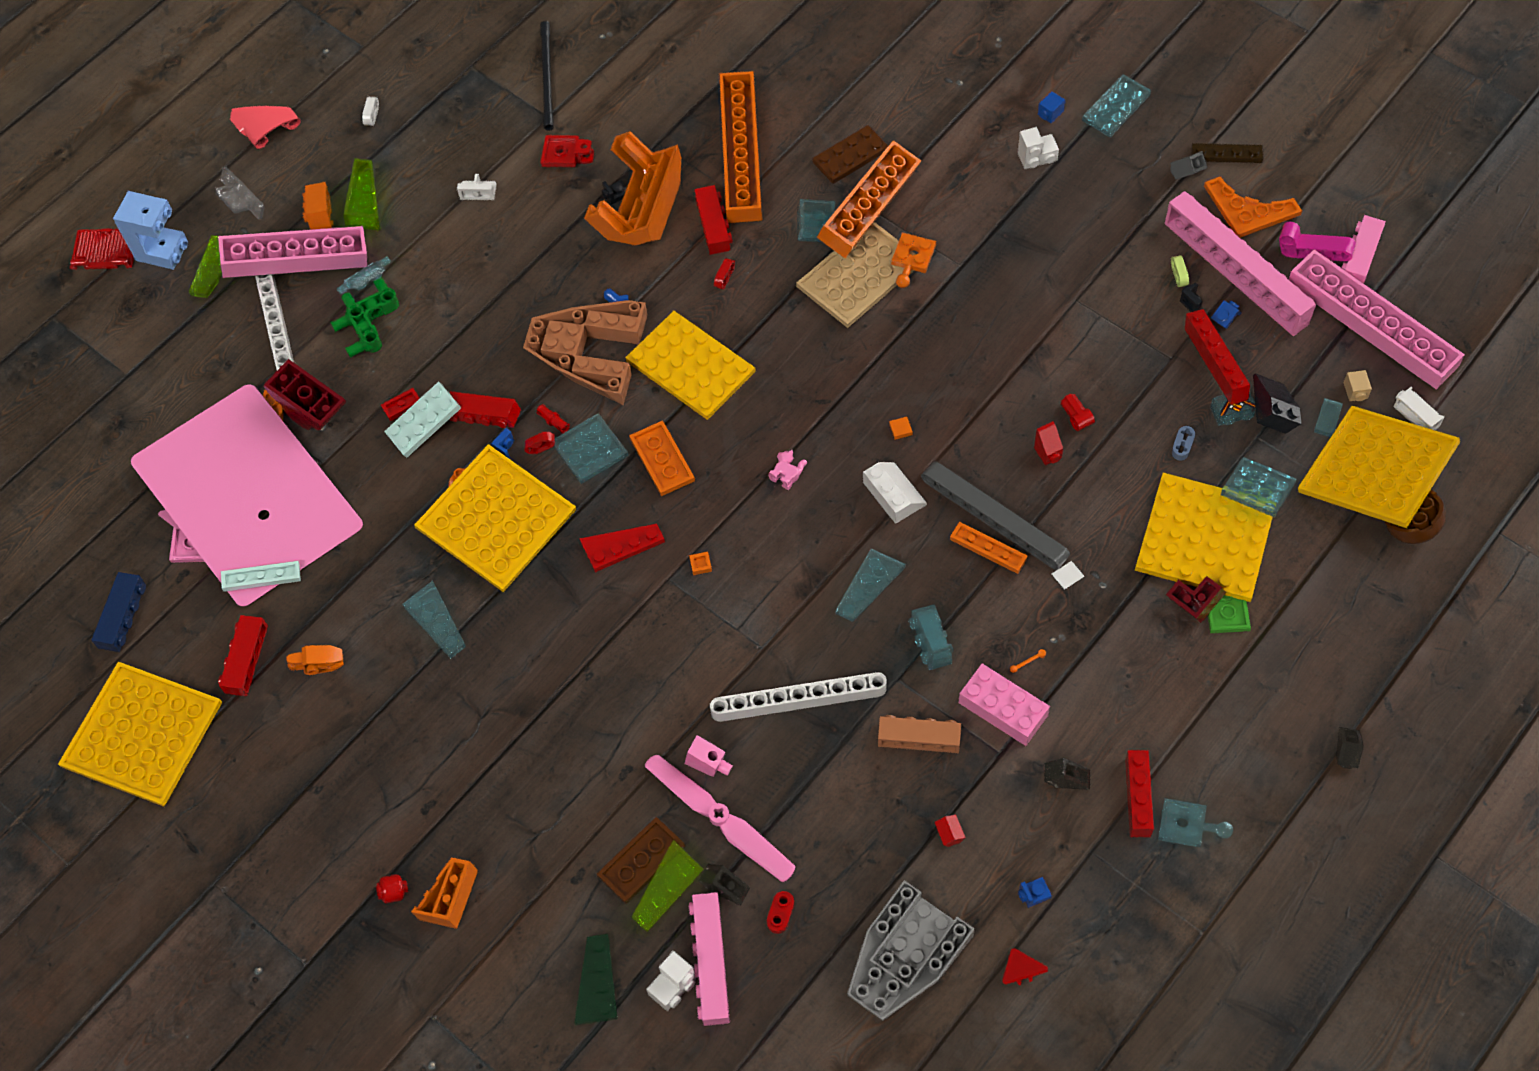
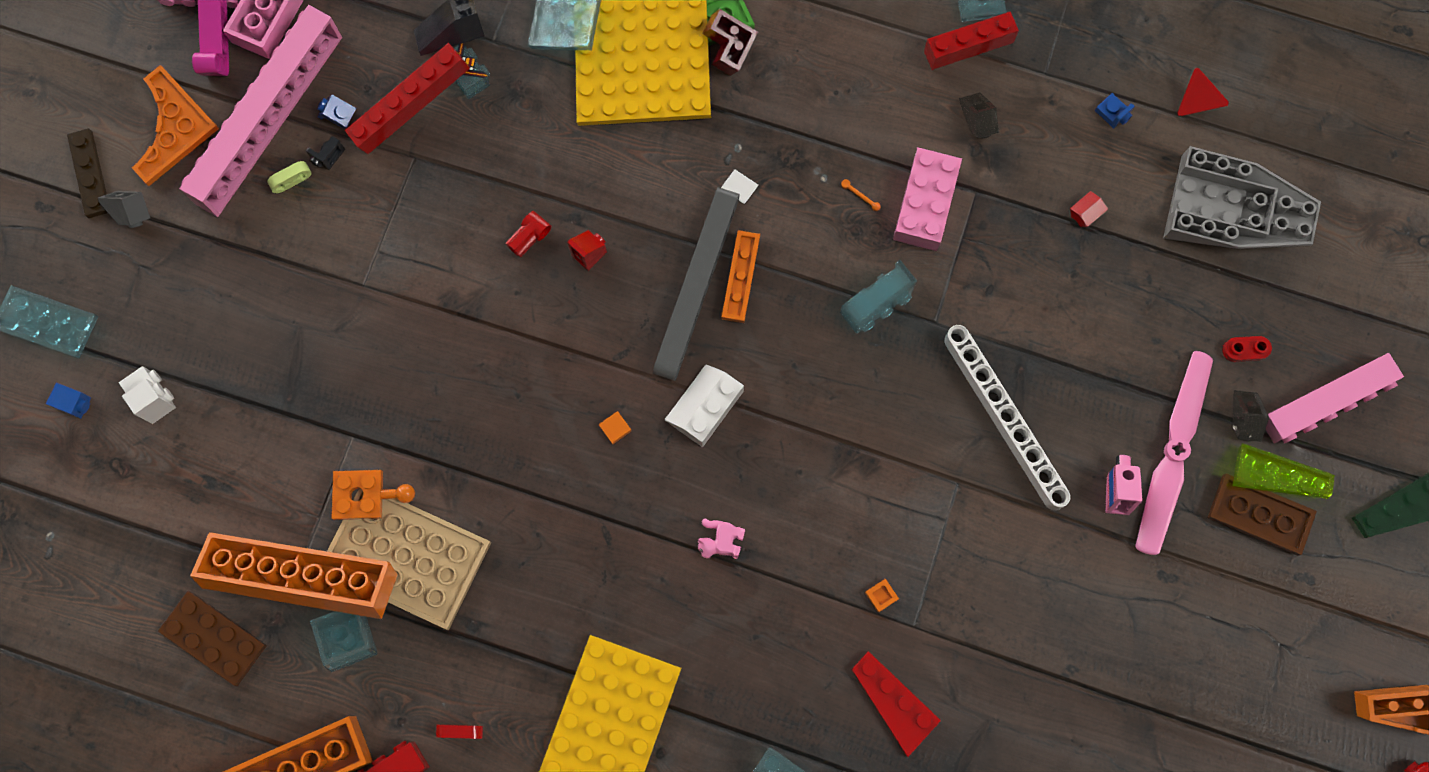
camera: 115 degrees left, 15 degrees up
(662, 458) = (760, 700): orange plate -> none
(672, 982) = (1377, 425): white brick -> none
(871, 579) = (833, 391): clear light blue wing -> none
(919, 734) = (995, 274): nougat brick -> none
(1187, 444) = (528, 112): sand blue beam -> none

